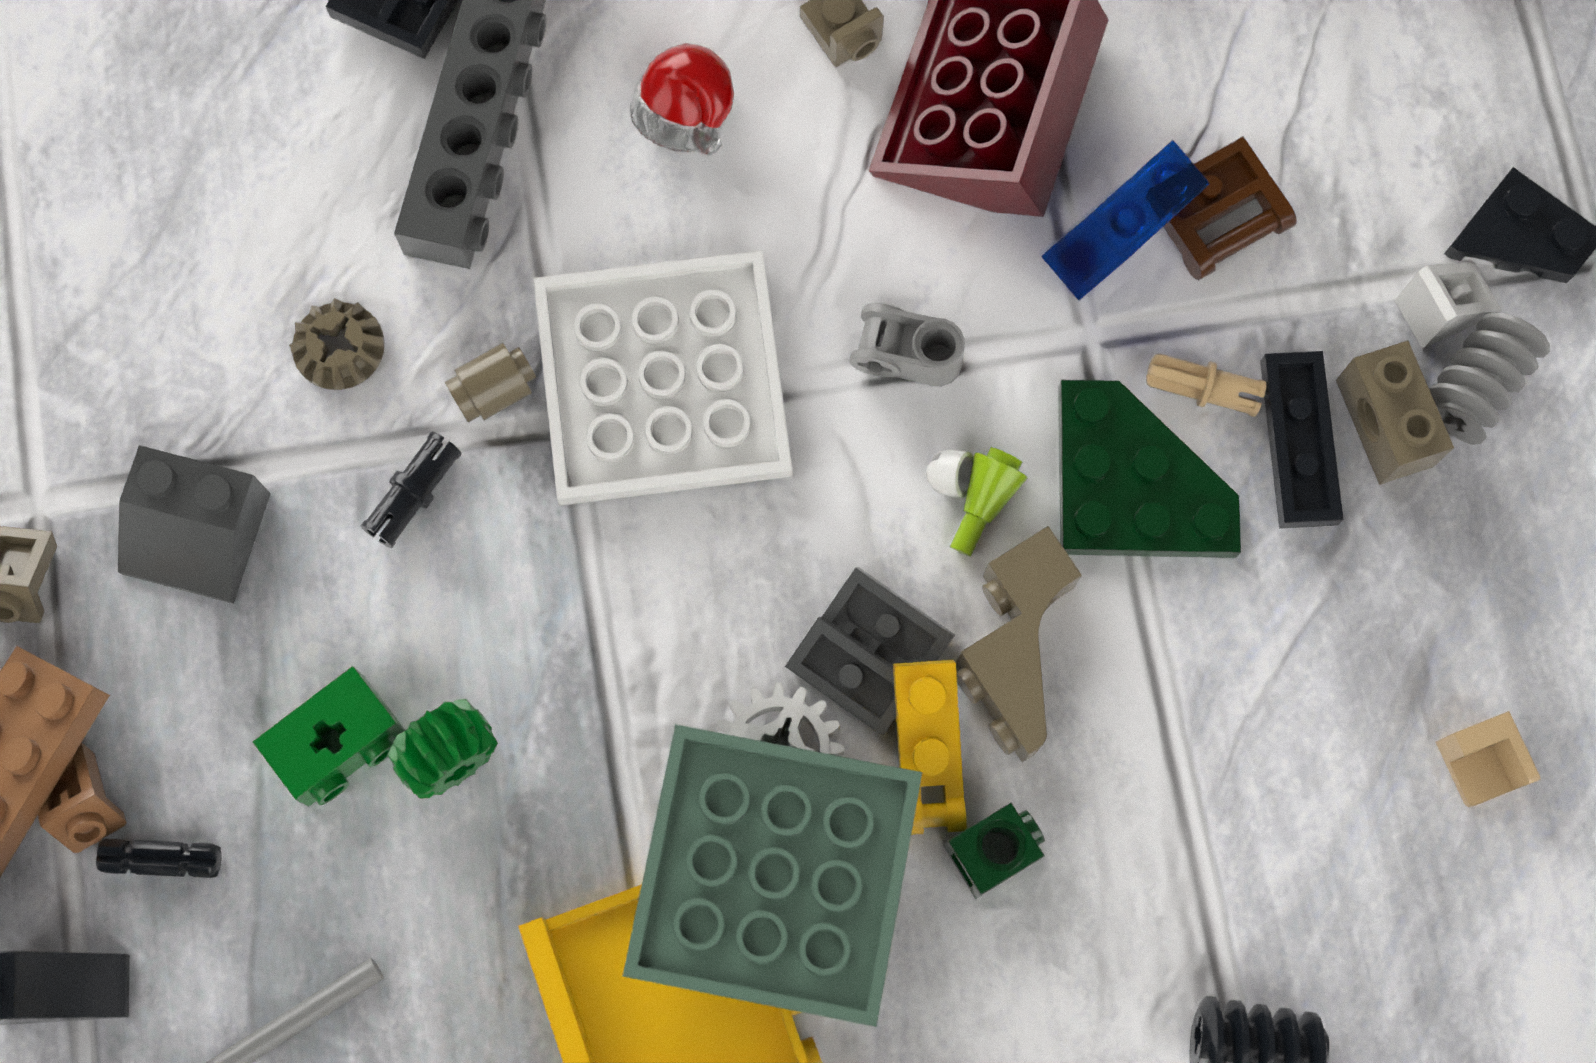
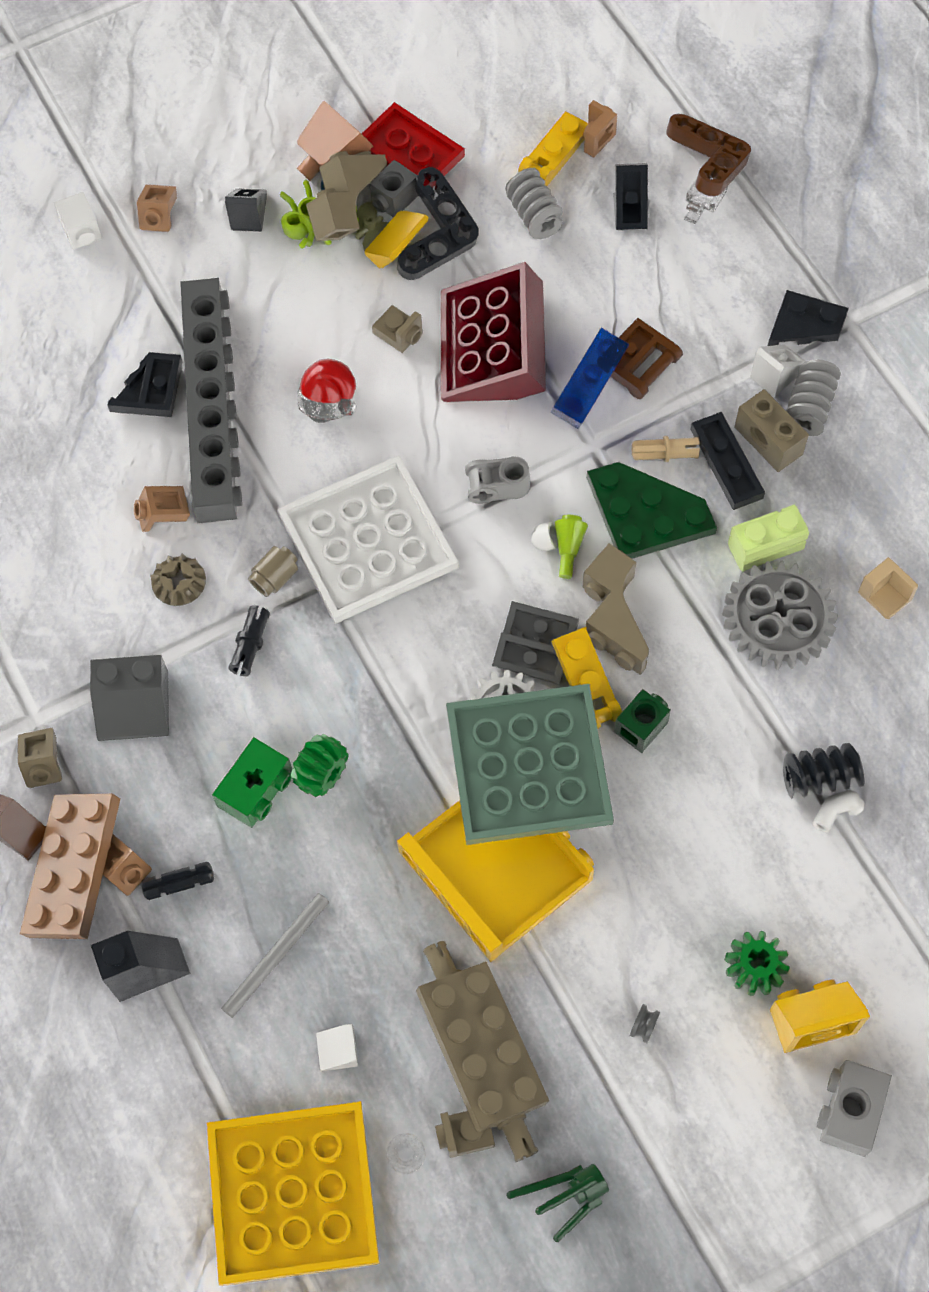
camera: 15 degrees left, 10 degrees down
(352, 209) = (161, 505): none -> medium nougat bracket
(1285, 797) = (779, 615): none -> light grey gear
(1319, 602) = (768, 537): none -> yellowish green brick

